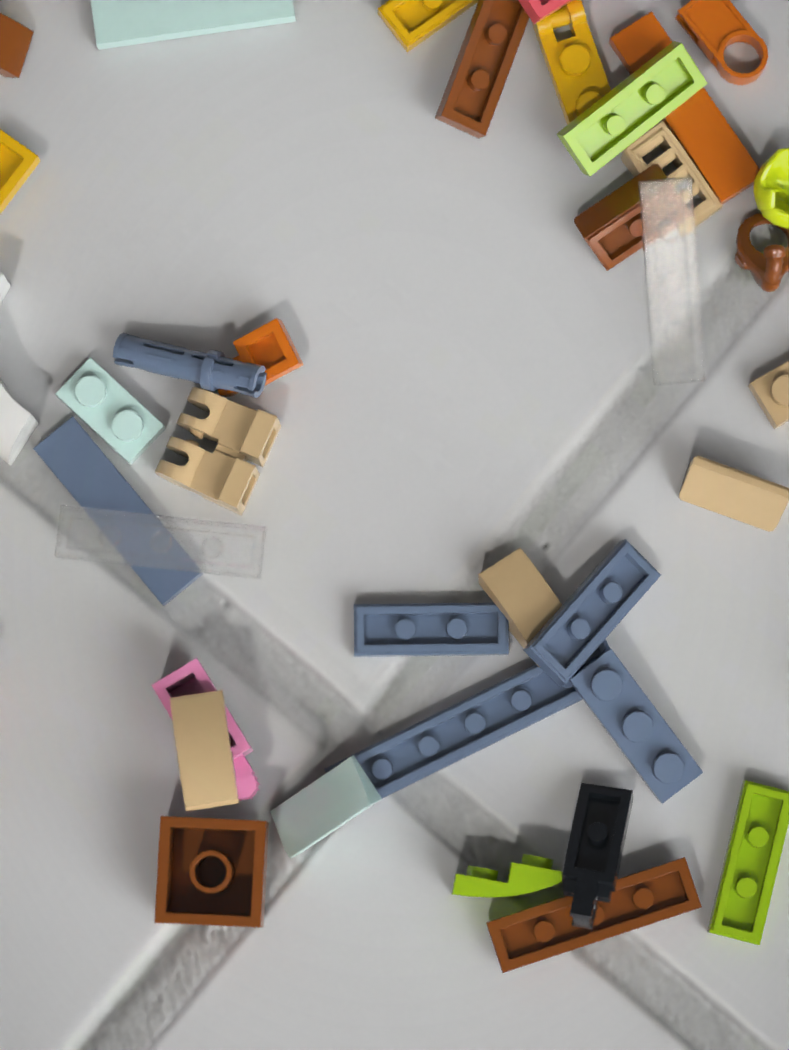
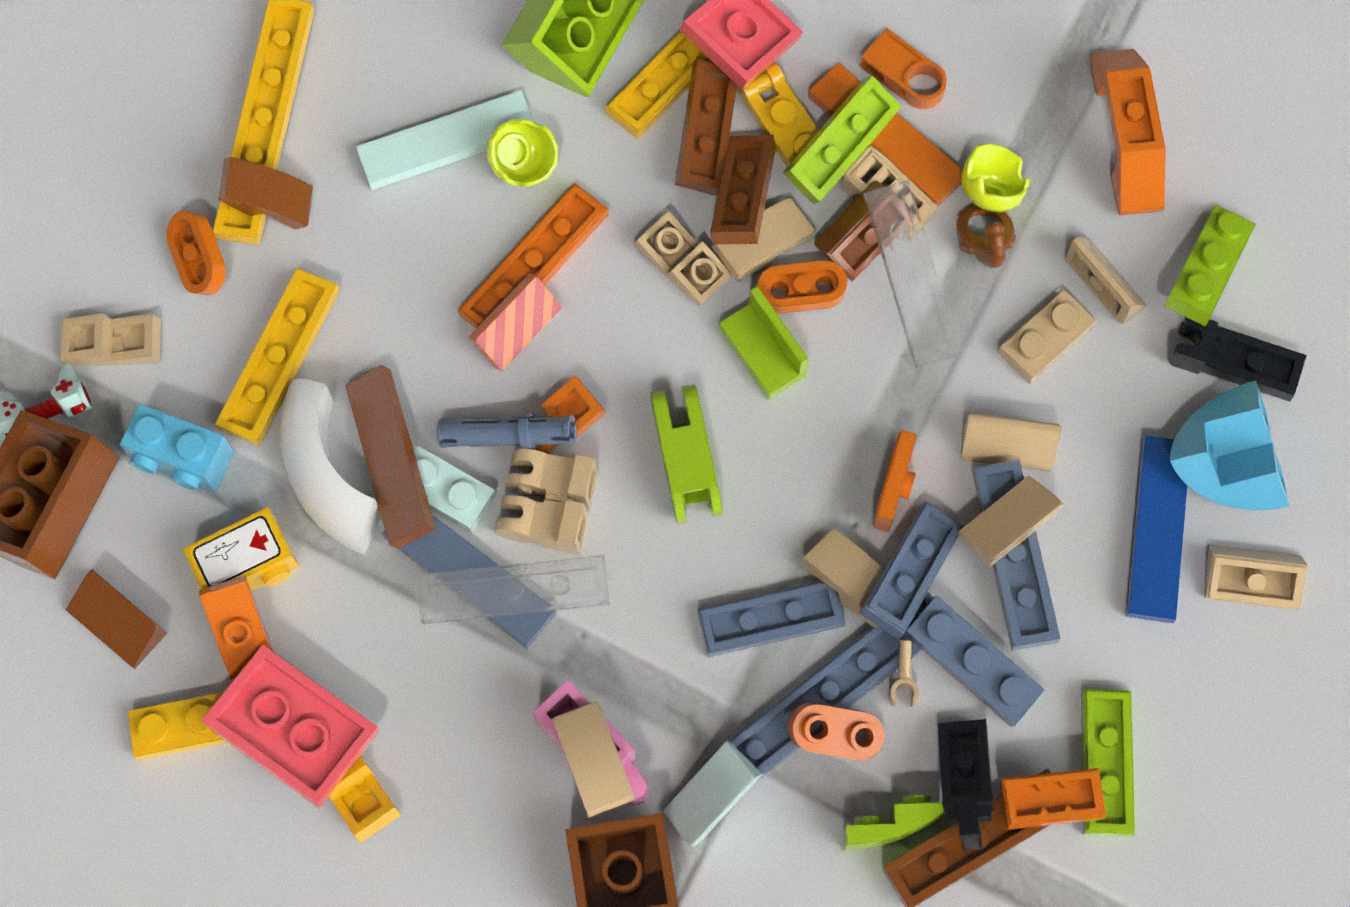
camera: 10 degrees left, 10 degrees down
(58, 365) = (390, 457): none -> dark orange tile
(225, 240) = (515, 322): none -> tile
(260, 173) = (540, 251): none -> orange tile
(272, 46) = (522, 152): none -> neon yellow hair
(378, 431) = (686, 454): none -> lime piece
(425, 205) = (682, 259): none -> tan slope
(473, 768) = (838, 731): none -> orange plate
(491, 326) = (765, 345): none -> lime panel
(508, 143) = (743, 190): none -> dark orange plate
(519, 201) = (780, 231): none -> tan slope
(548, 264) = (801, 283): none -> orange plate
(558, 721) = (904, 675): none -> tan hand
(601, 510) = (897, 481): none -> orange plate
(679, 892) = (1052, 798): none -> orange plate
(709, 619) = (1020, 572): none -> sand blue plate
(710, 583) = (1010, 520): none -> tan slope

